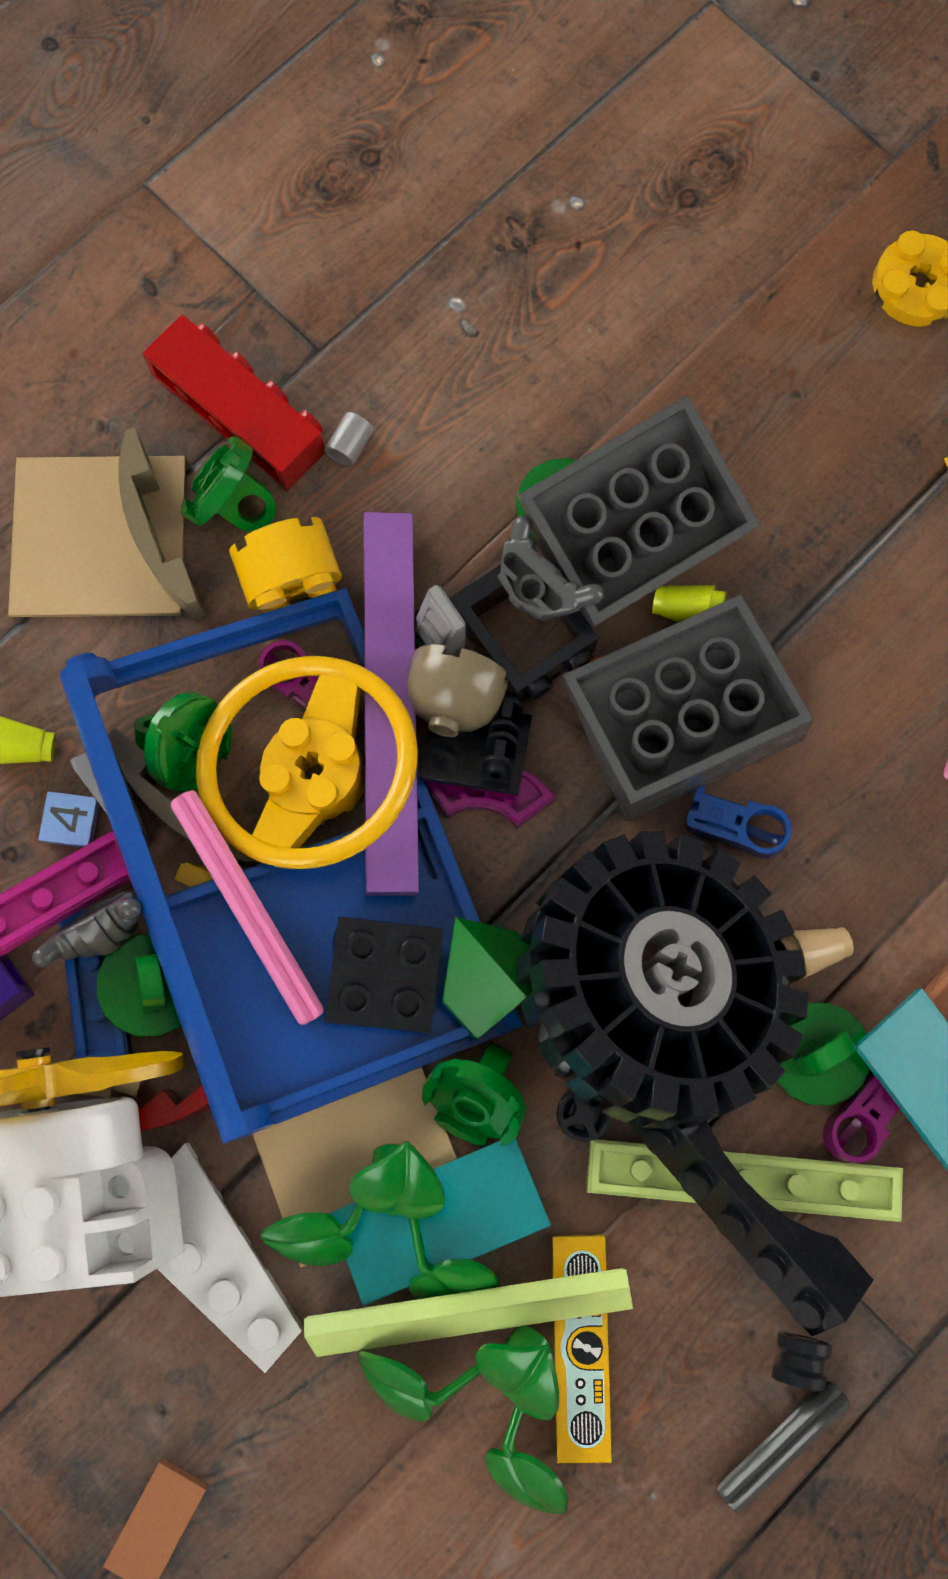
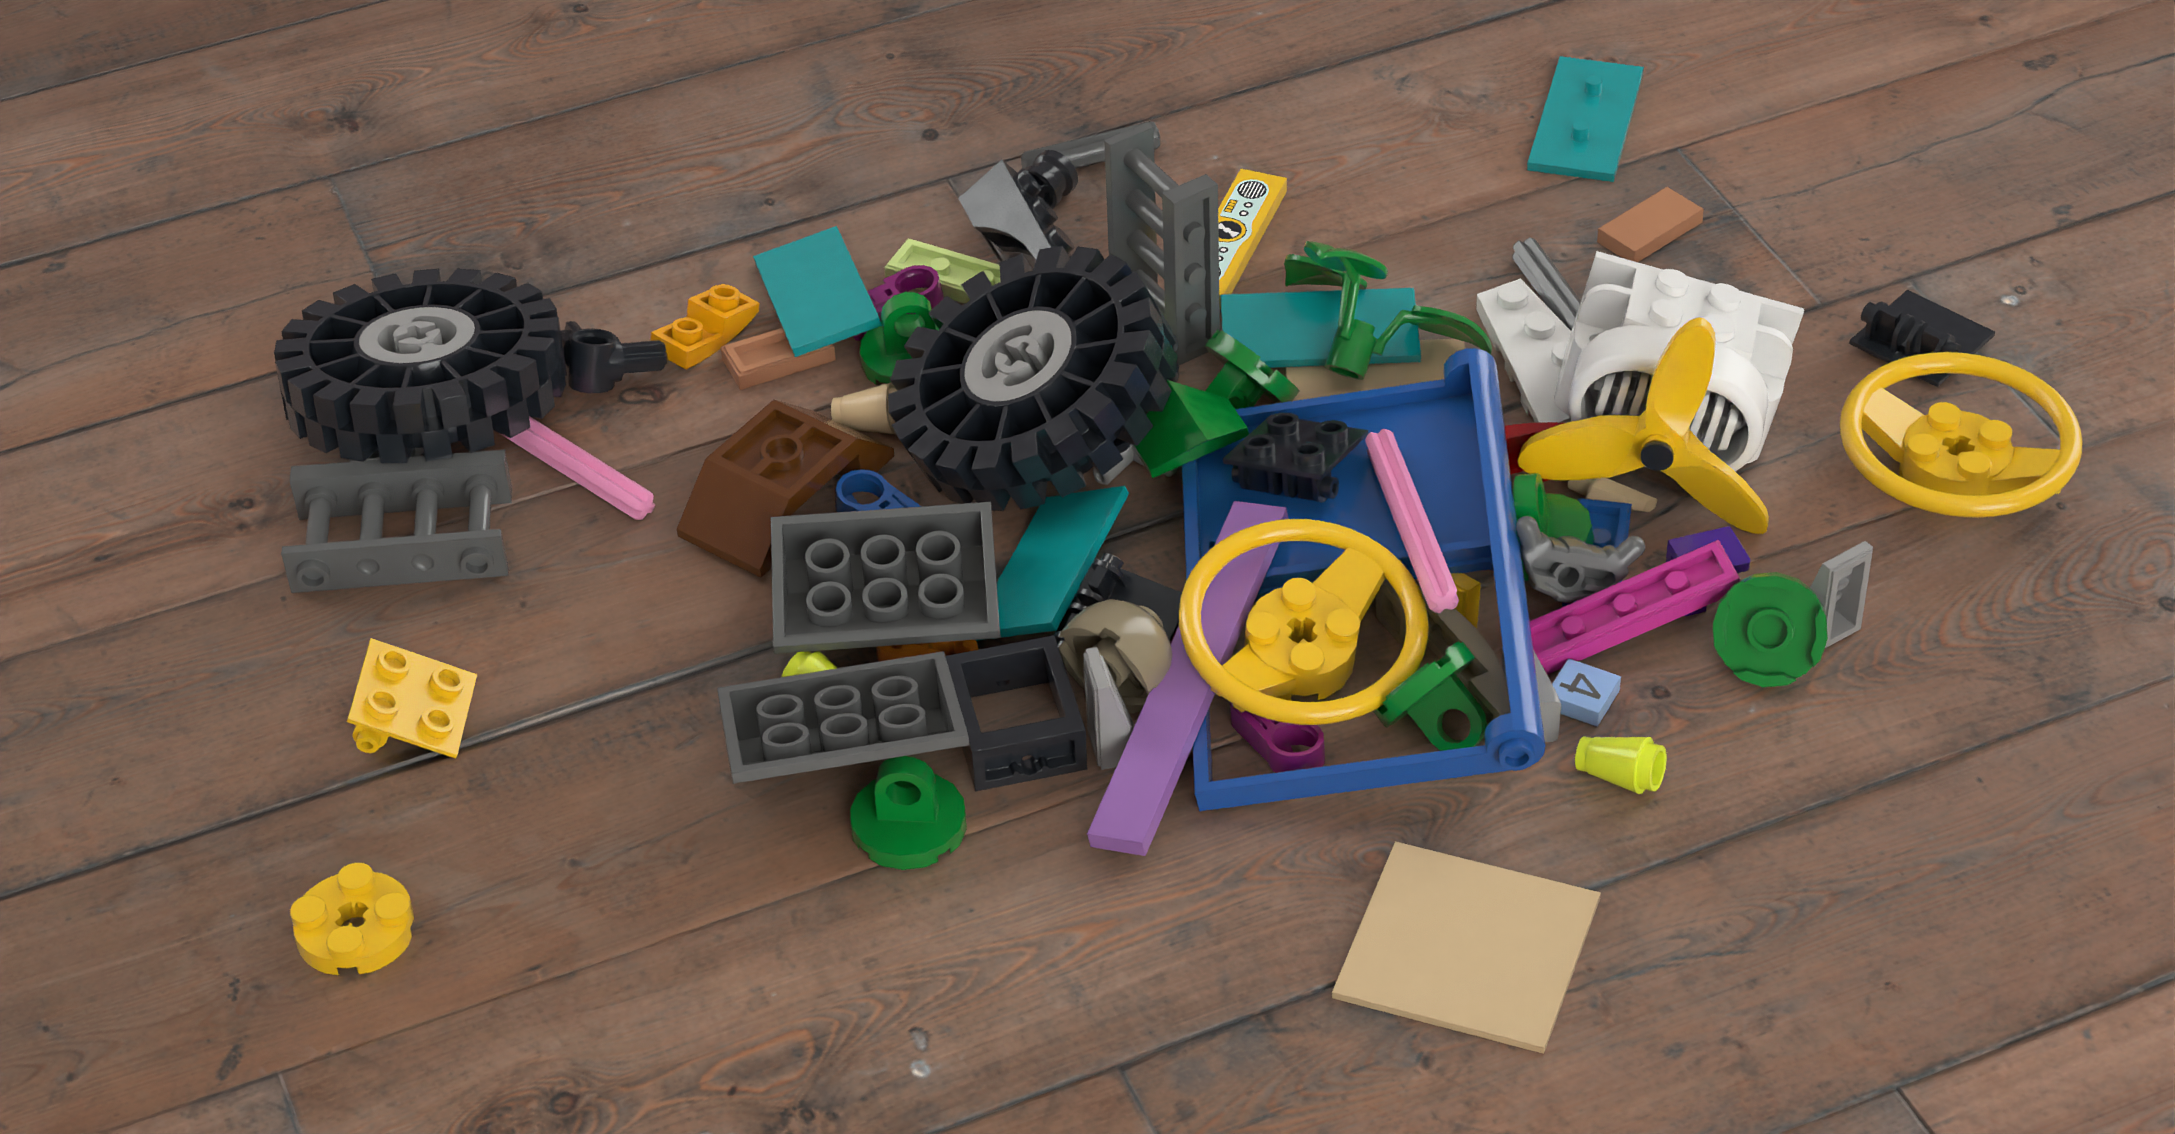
camera: 155 degrees left, 35 degrees down
(135, 480) = (1395, 852): dark tan slope -> none
(223, 484) = (1300, 907): green tile -> none
(229, 1373) = (1547, 280): none -> axle
(235, 401) = (1248, 1010): red brick -> none
(285, 564) = (1254, 808): yellow brick -> none
(349, 439) = (1125, 941): light grey hinge -> none
(468, 1312) = (1404, 271): yellowish green tile -> none
(518, 1369) = (1294, 223): green plant -> none
(537, 583) = (985, 681): dark grey piece -> none
(561, 797) = (1054, 559): none -> teal piece
(660, 1241) = (1188, 234): none -> dark grey fence
(843, 826) = (769, 473): none -> reddish brown slope

